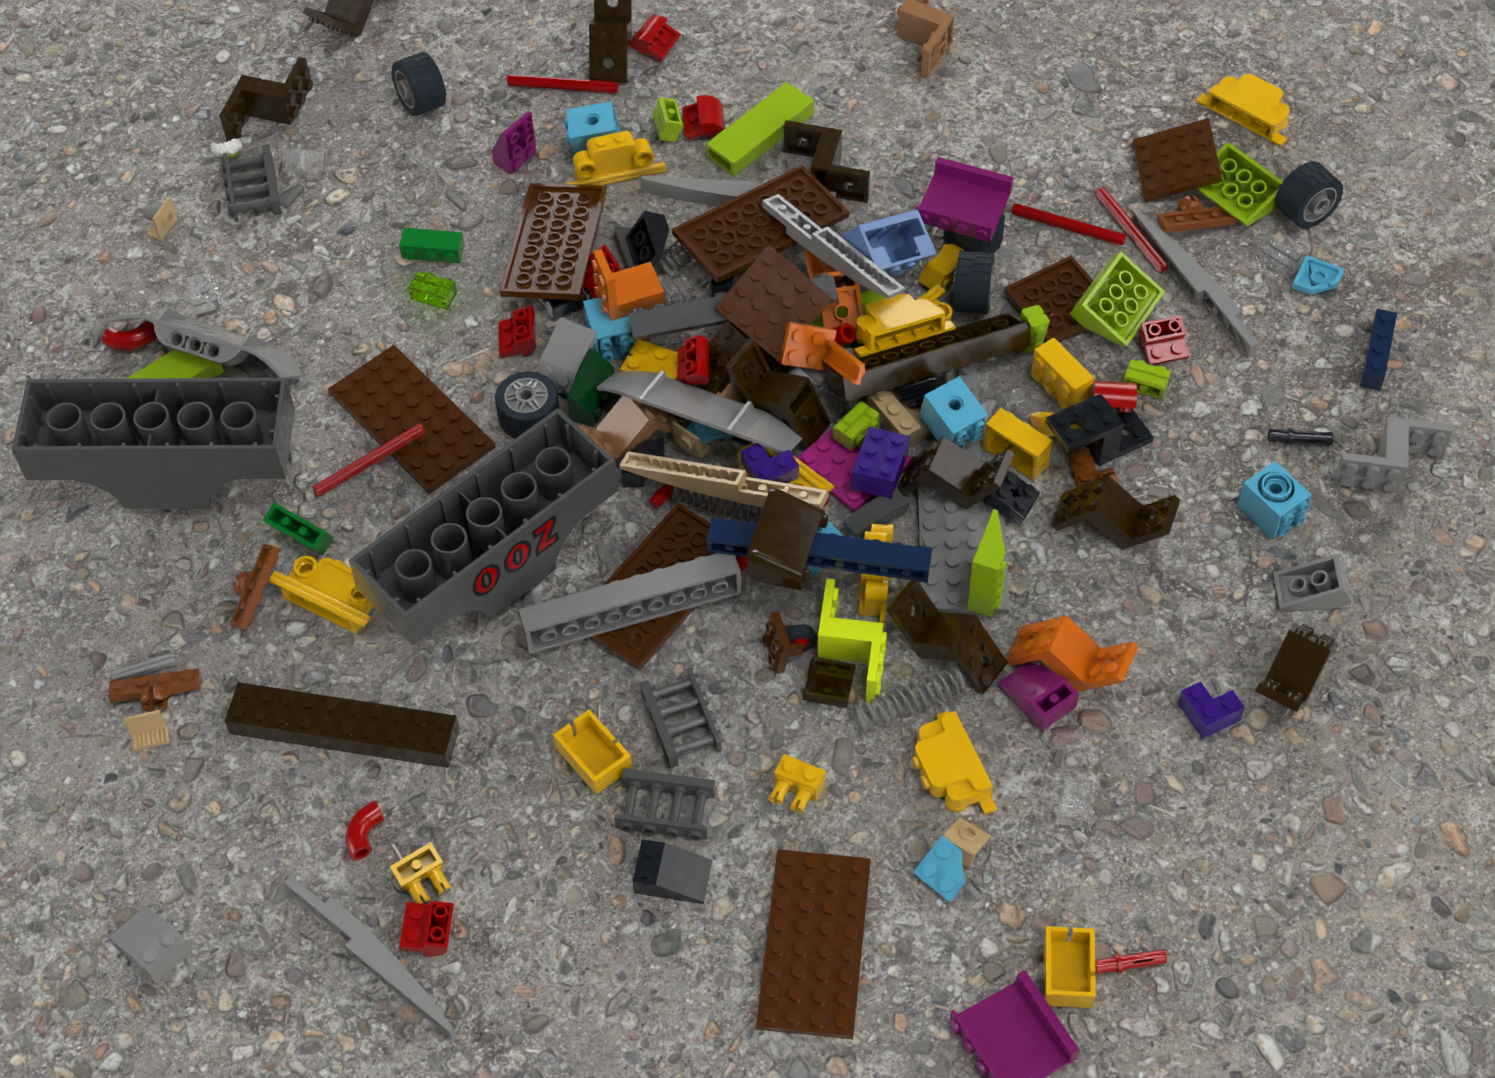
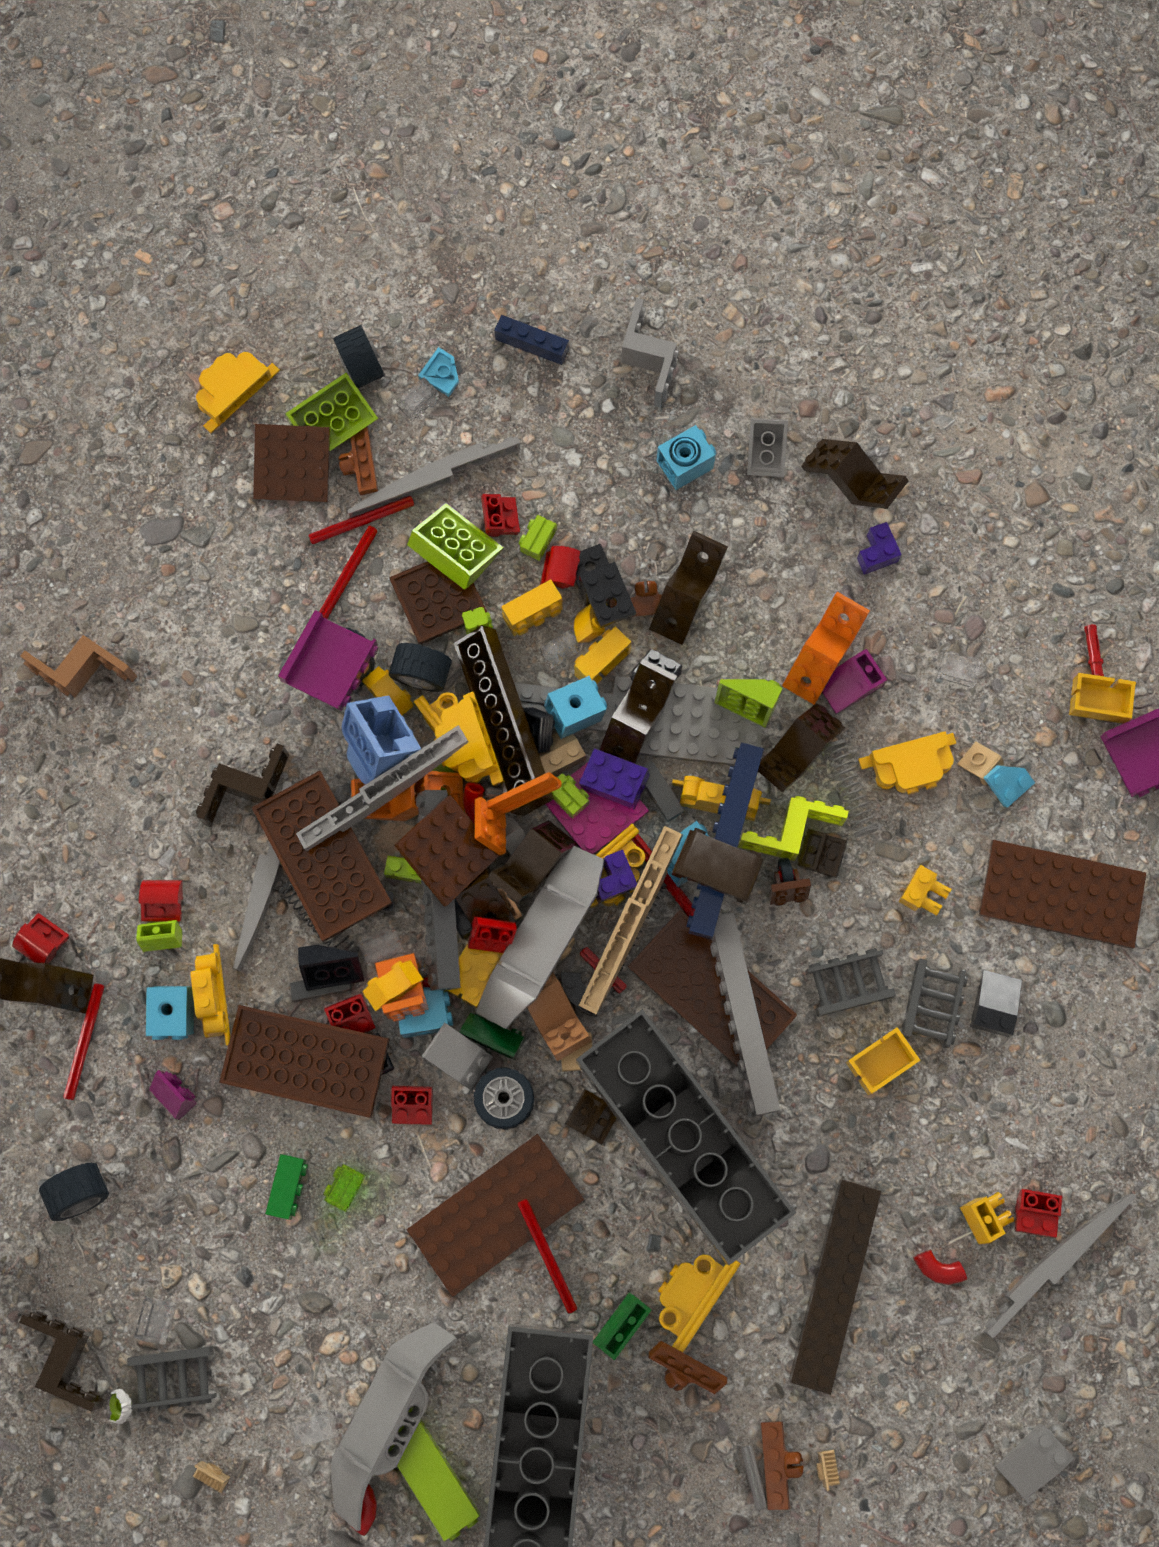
camera: 85 degrees left, 20 degrees up
(628, 272) = (392, 985): none -> yellow brick
(759, 129) = (182, 845): lime brick -> none
(1296, 436) = (612, 431): black pin -> none

